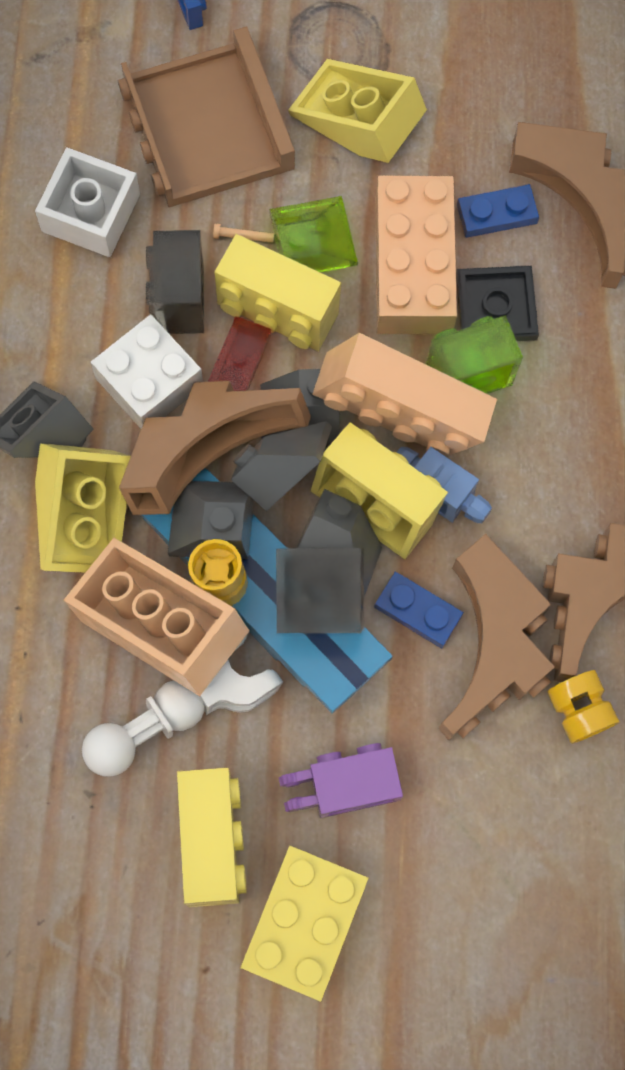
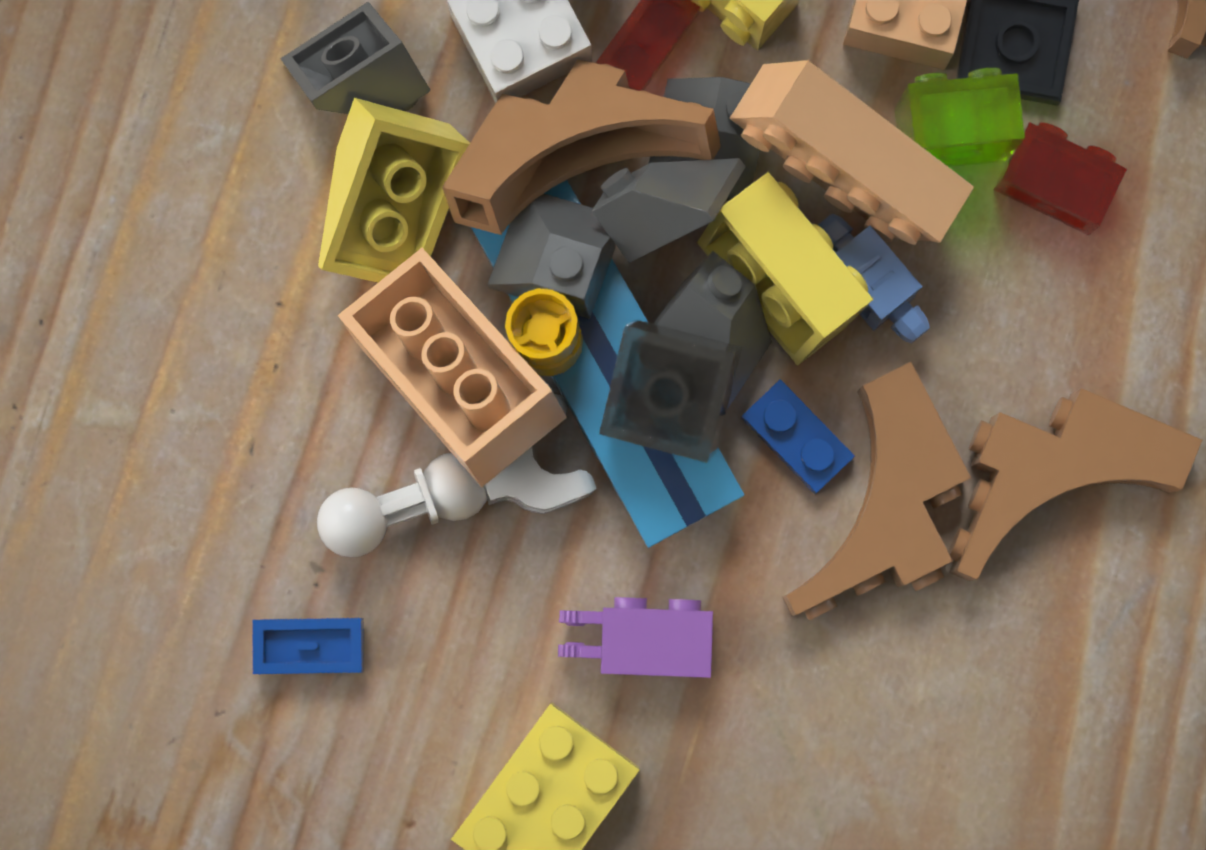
camera: 20 degrees right, 10 degrees up
(96, 852) = (308, 646): none -> blue plate
(210, 837) = (452, 669): light yellow brick -> none
(554, 385) = (1061, 177): none -> clear red brick
(590, 719) = (977, 639): yellow wheel -> none

